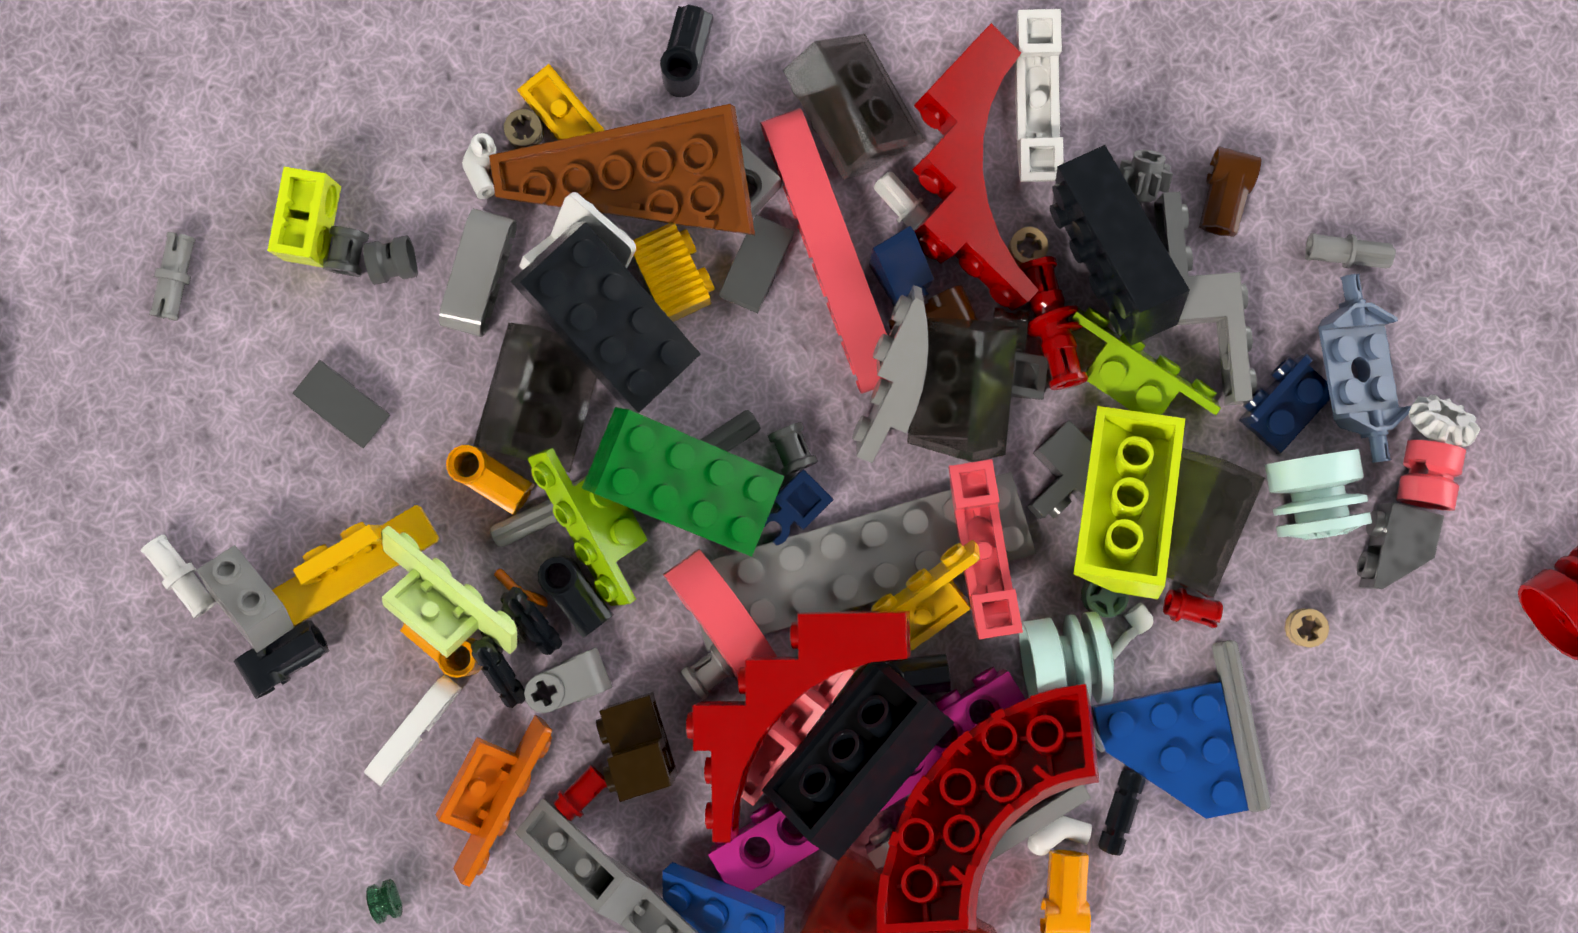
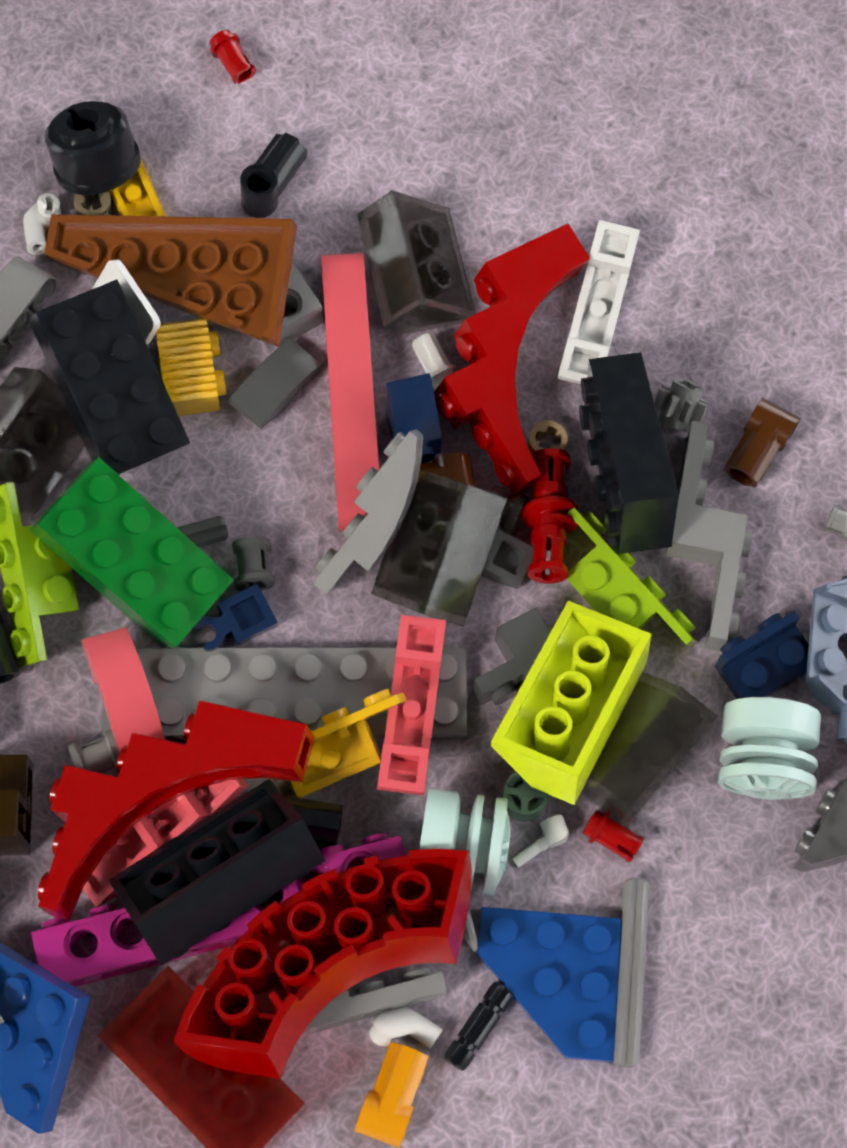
camera: 10 degrees right, 15 degrees down
(506, 76) = (92, 148): none -> black wheel
(1318, 633) = (737, 900): tan bush -> none

